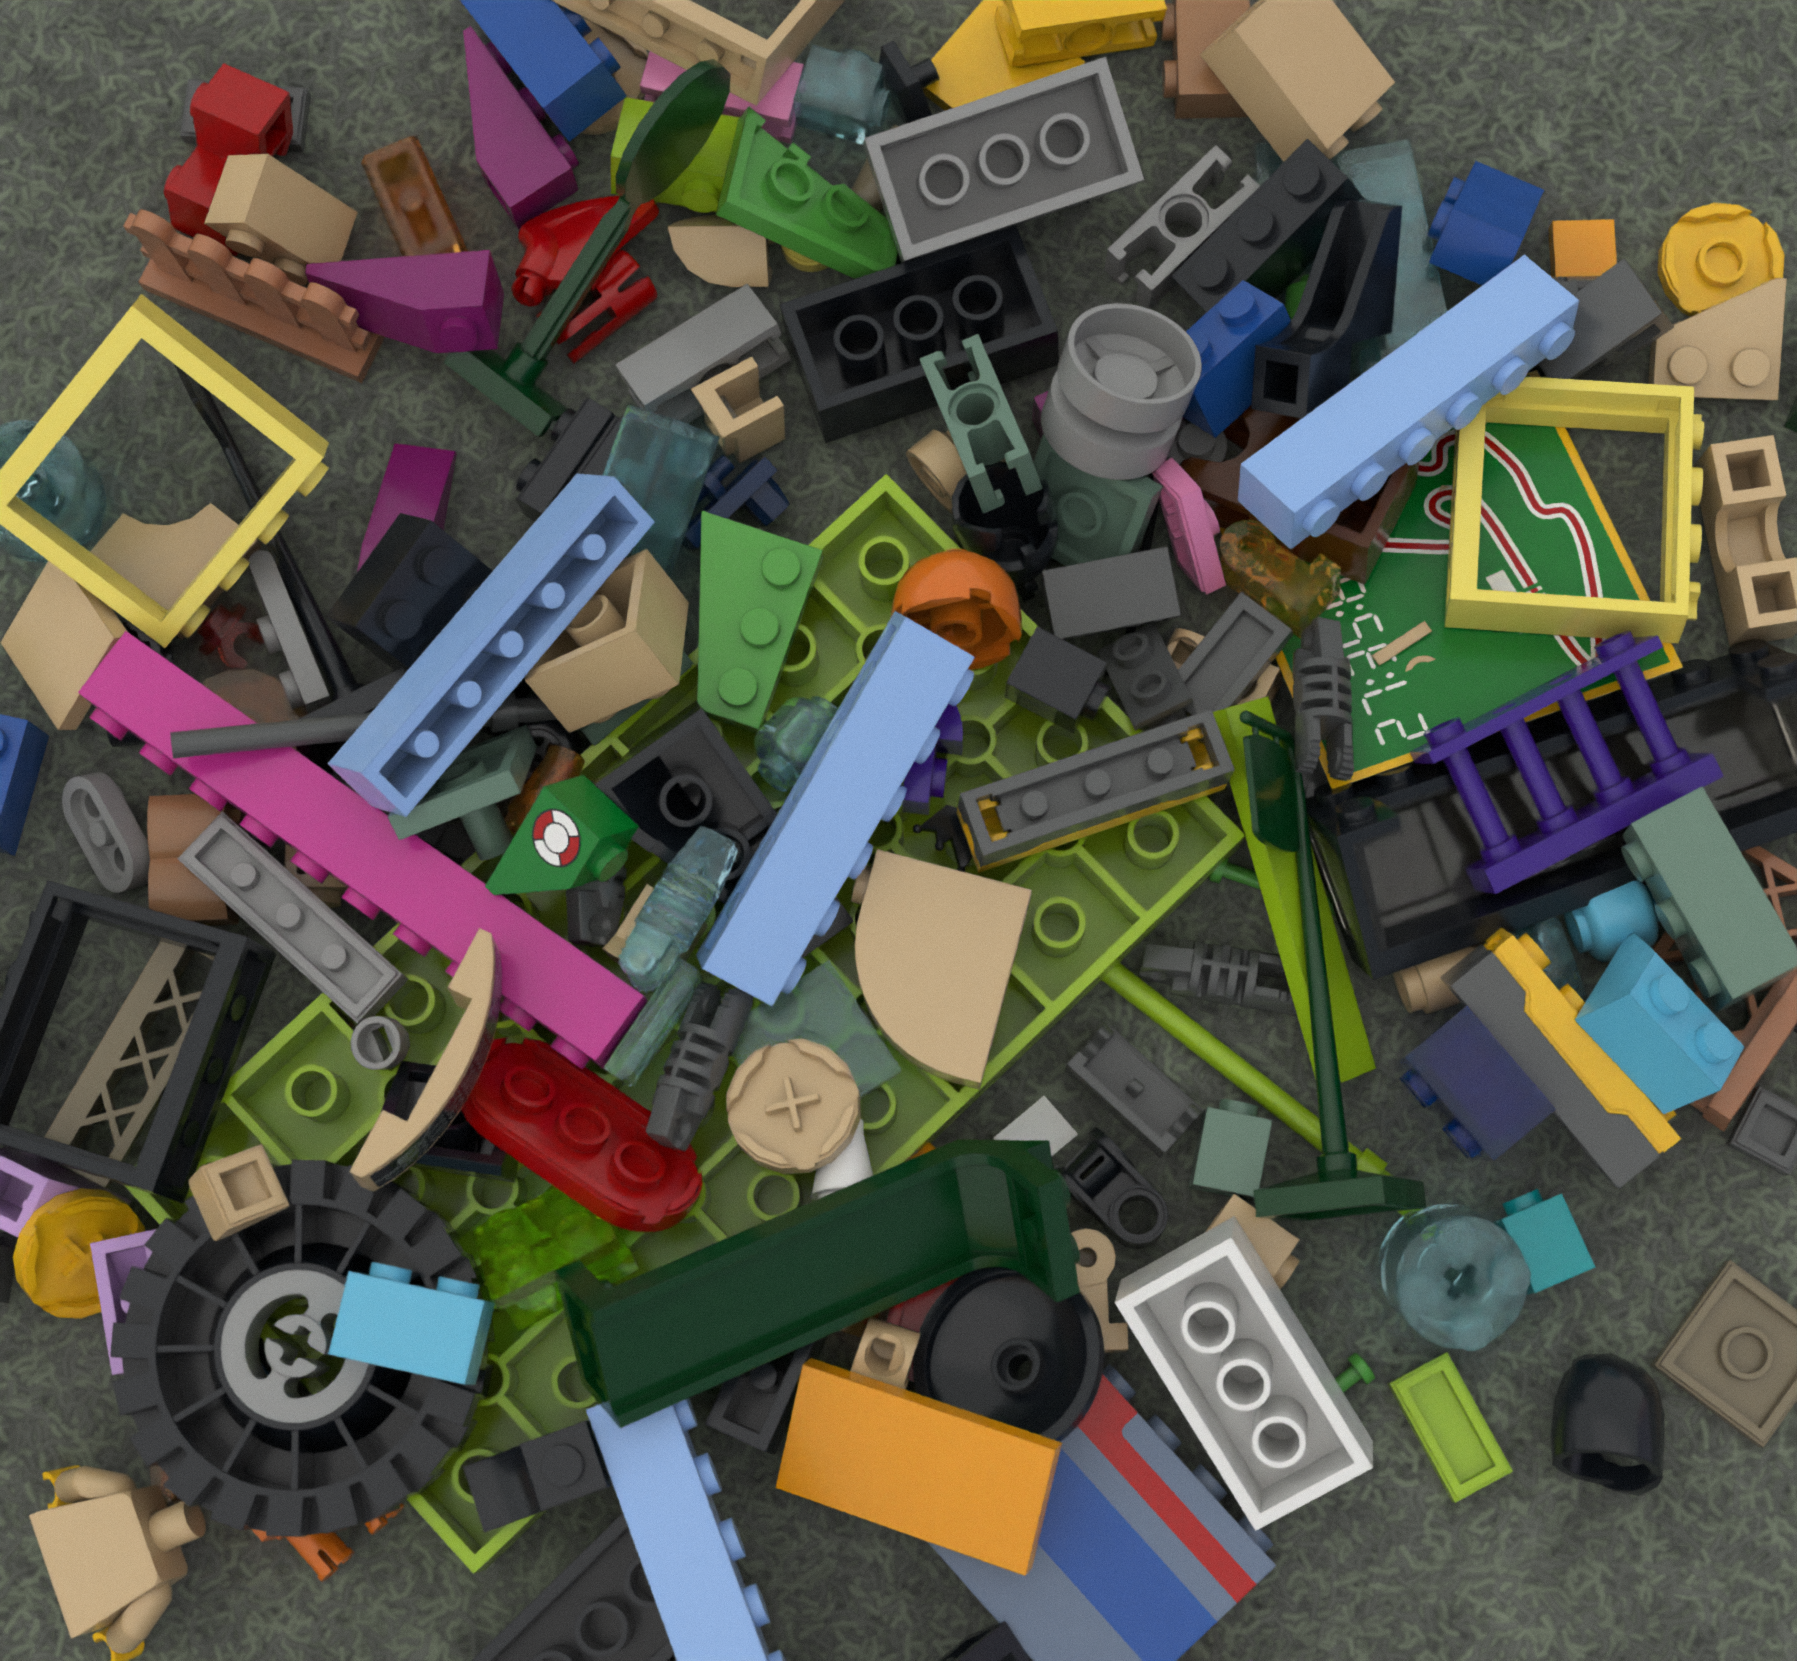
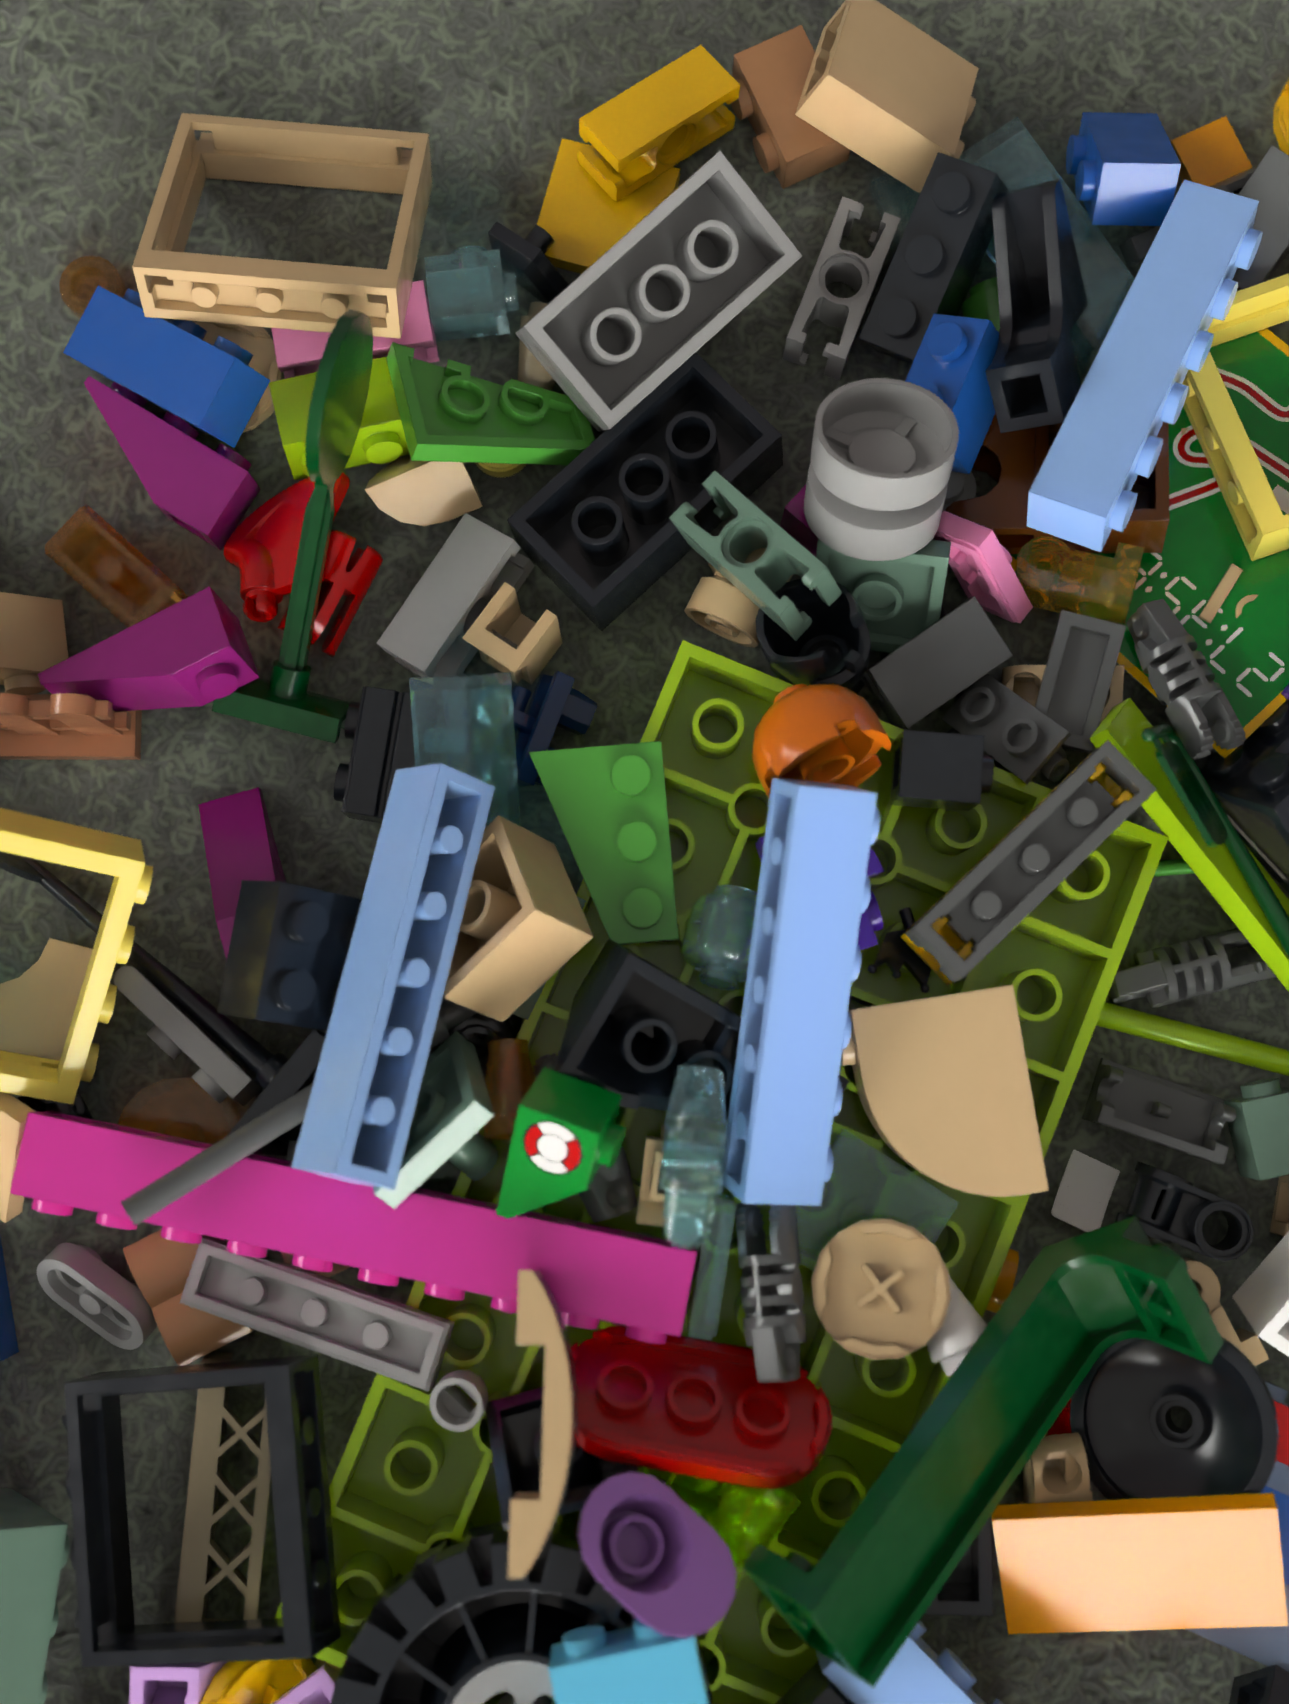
camera: 30 degrees left, 5 degrees up
(221, 630) = (118, 1054): clear red plate -> none
(237, 1192) = (397, 1623): tan slope -> none
(485, 1224) = (656, 1555): none -> medium lavender piece

